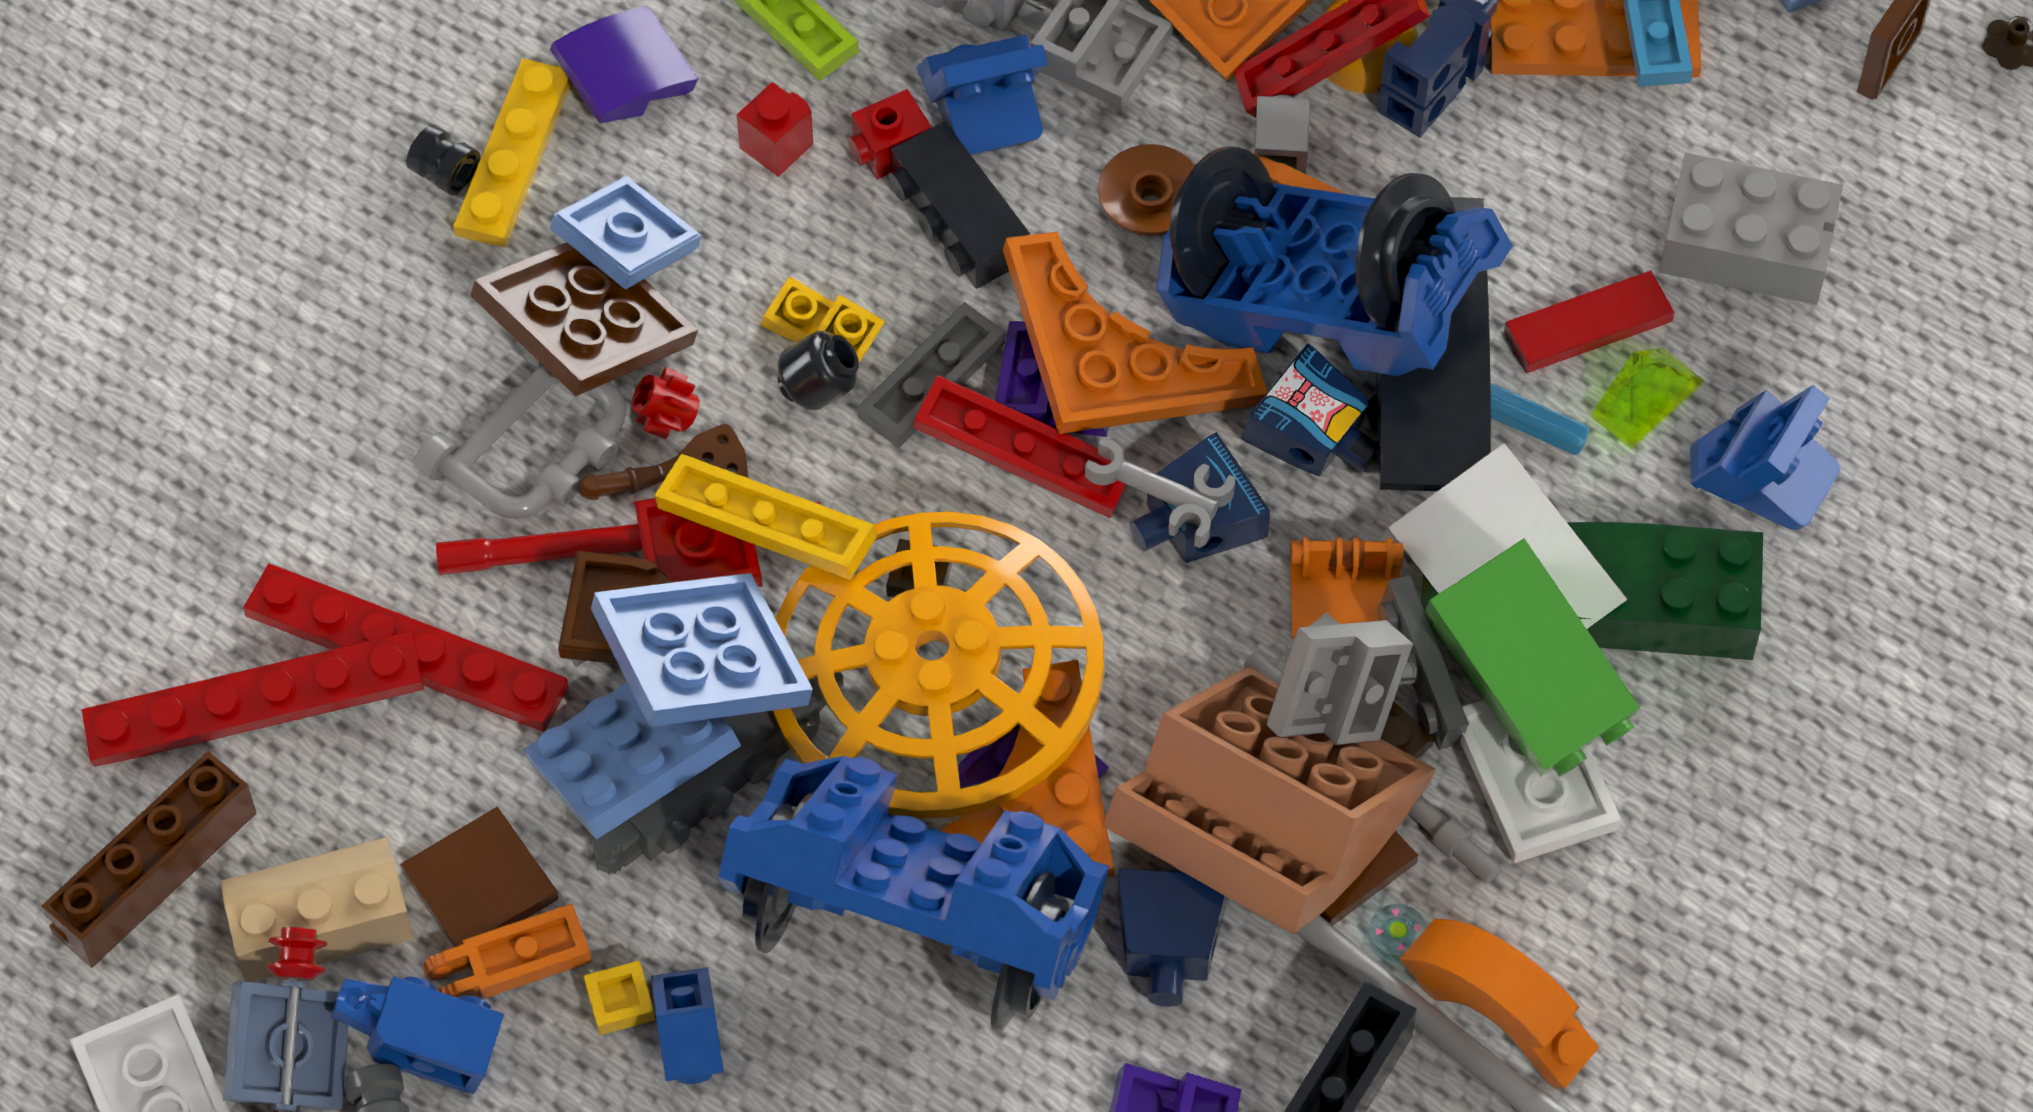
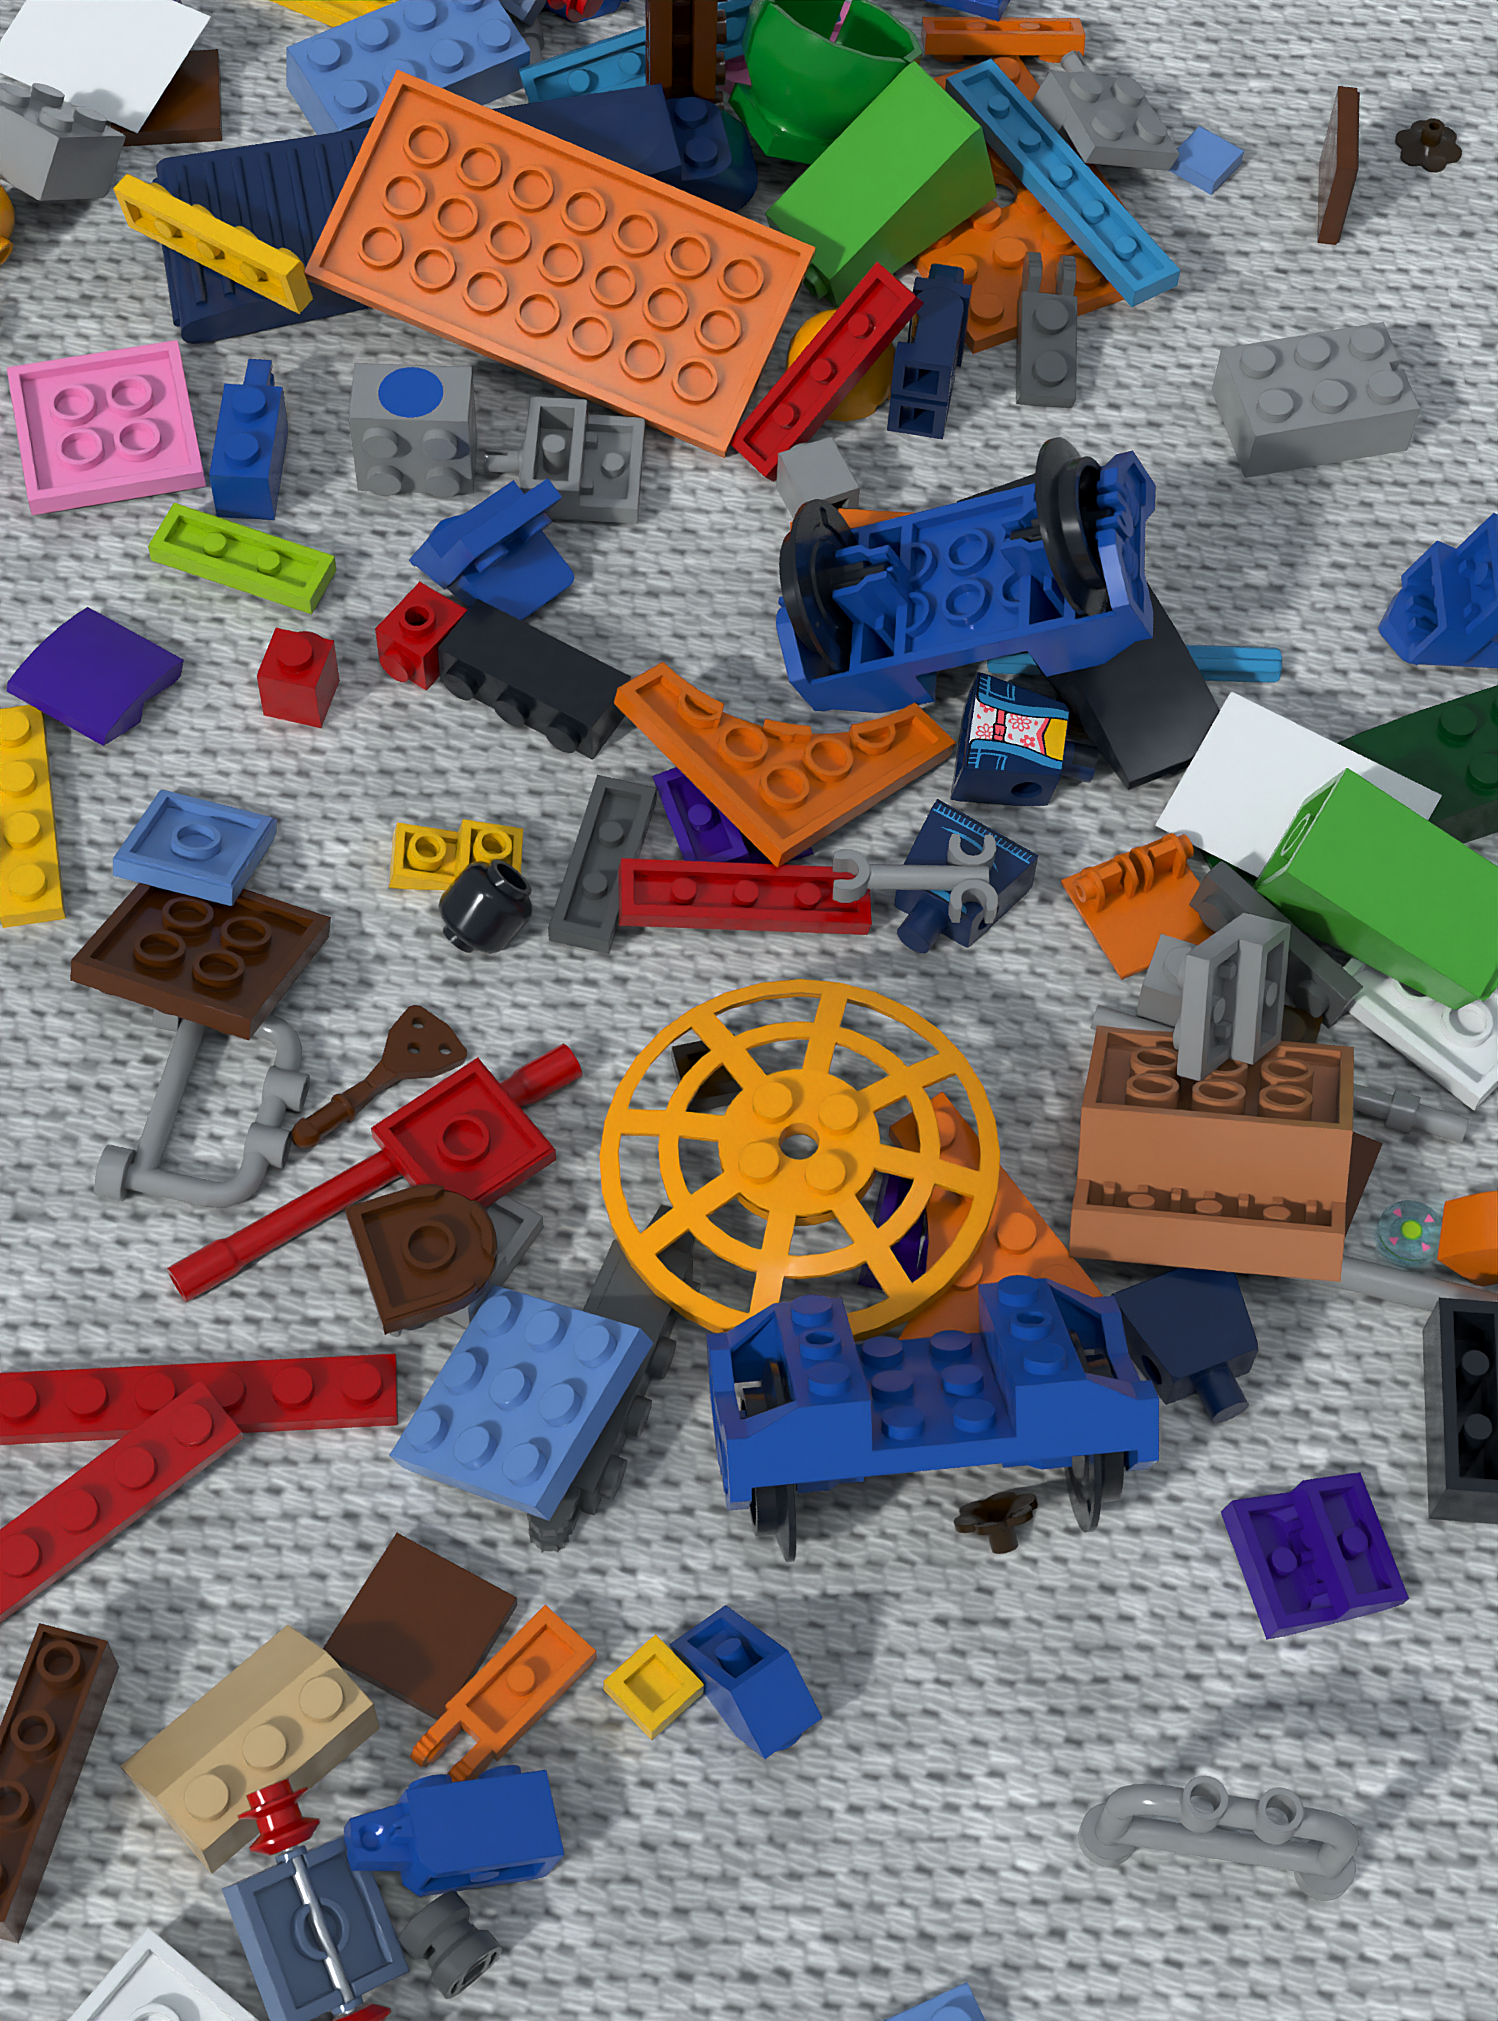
camera: 30 degrees left, 0 degrees up
(665, 403) = (340, 1009): red gear -> none
(701, 649) = (554, 1256): medium blue plate -> none
(766, 516) = (535, 1081): yellow plate -> none
(940, 996) = (997, 1518): none -> dark brown plant
(1139, 173) = (724, 570): dark orange dish -> none
(1552, 85) = (1047, 336): none -> dark grey hinge
(1588, 321) = (1214, 547): red tile -> none
(1645, 394) = (1310, 600): clear neon green slope -> none

